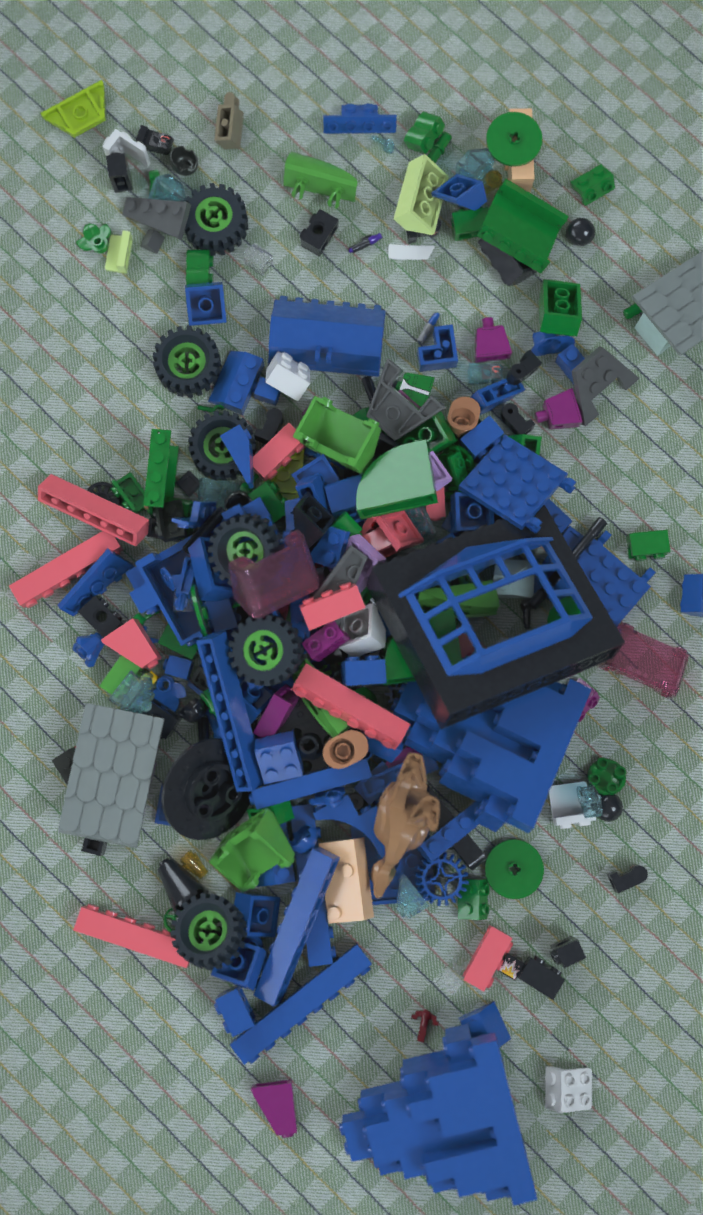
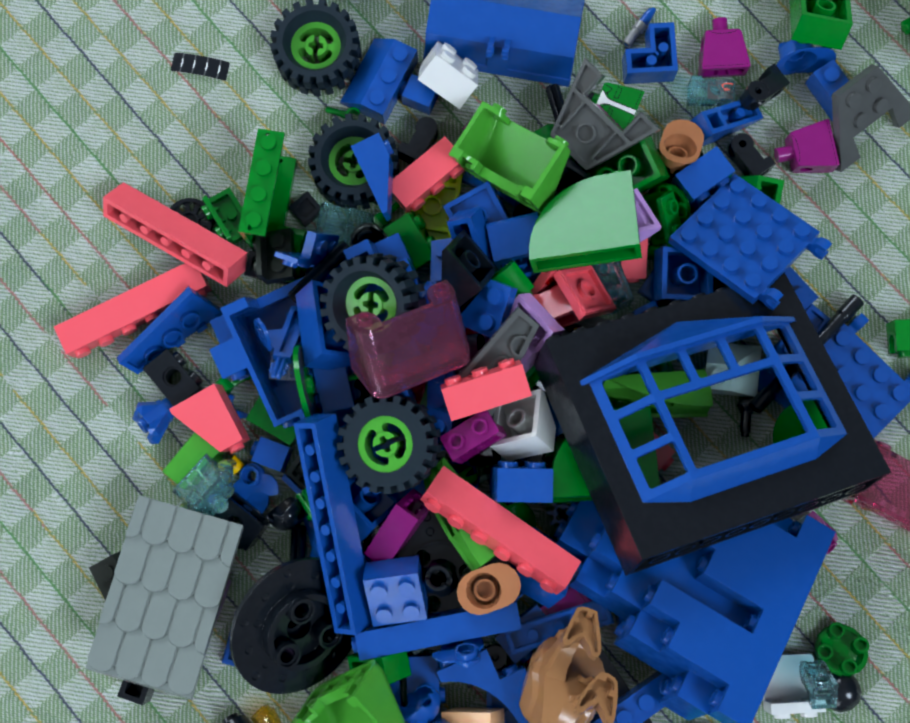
camera: 10 degrees right, 0 degrees up
(99, 381) = (200, 65): none -> black sticker

